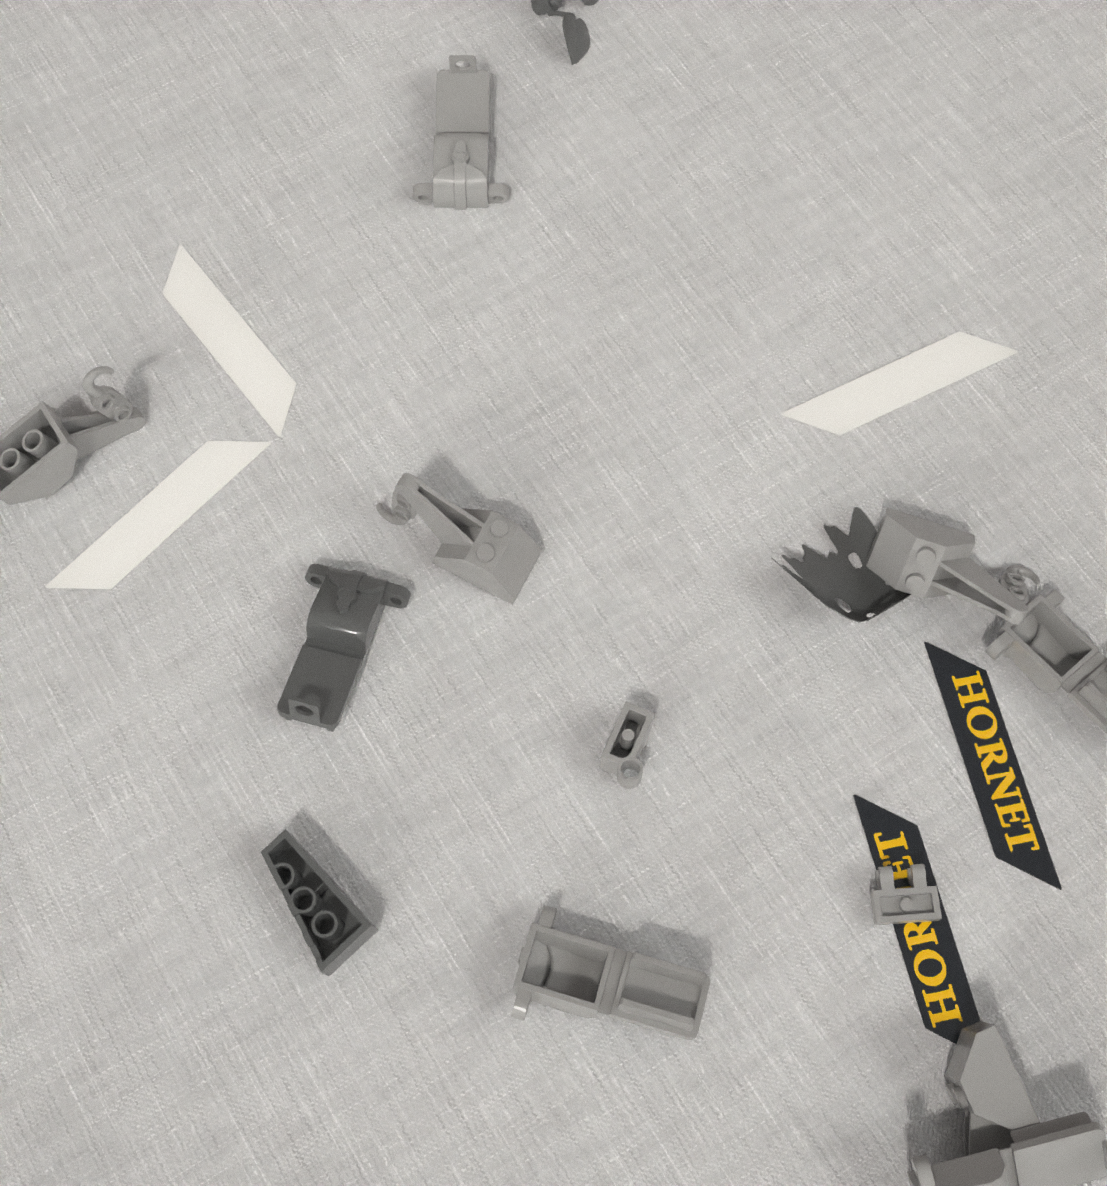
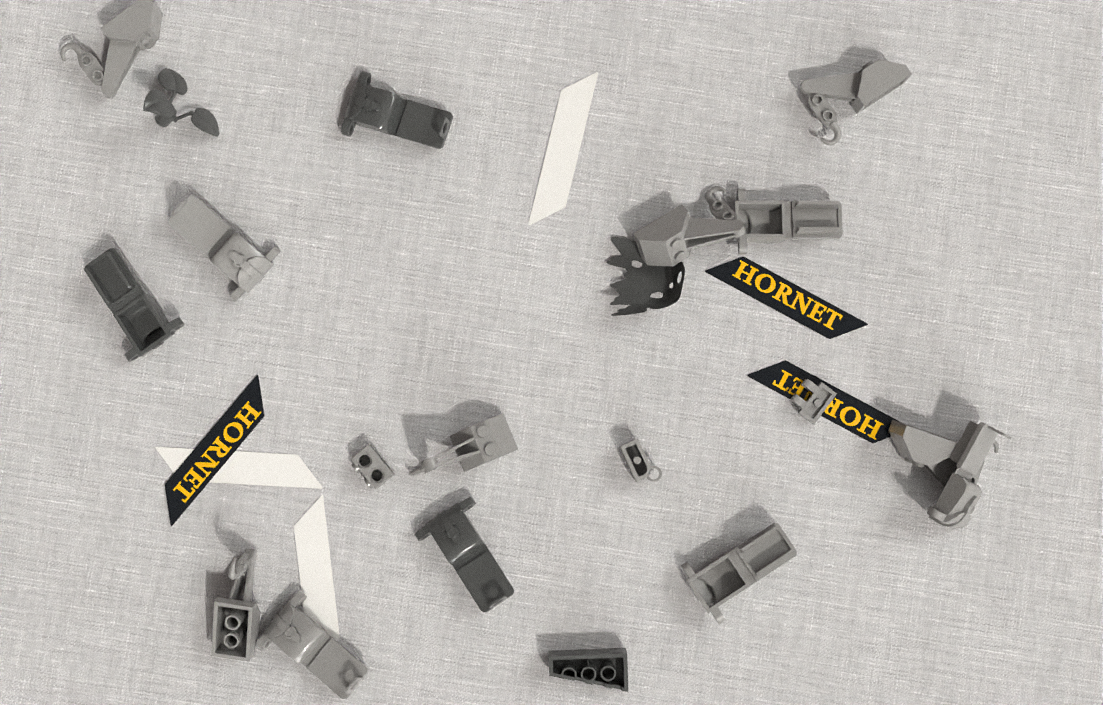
camera: 50 degrees left, 20 degrees up
(75, 557) = (314, 648): none -> light grey piece
(227, 300) = (214, 450): none -> black sticker
(314, 111) = (132, 308): none -> dark grey piece
(355, 463) = (376, 463): none -> light grey brick
(757, 183) = (395, 116): none -> dark grey piece

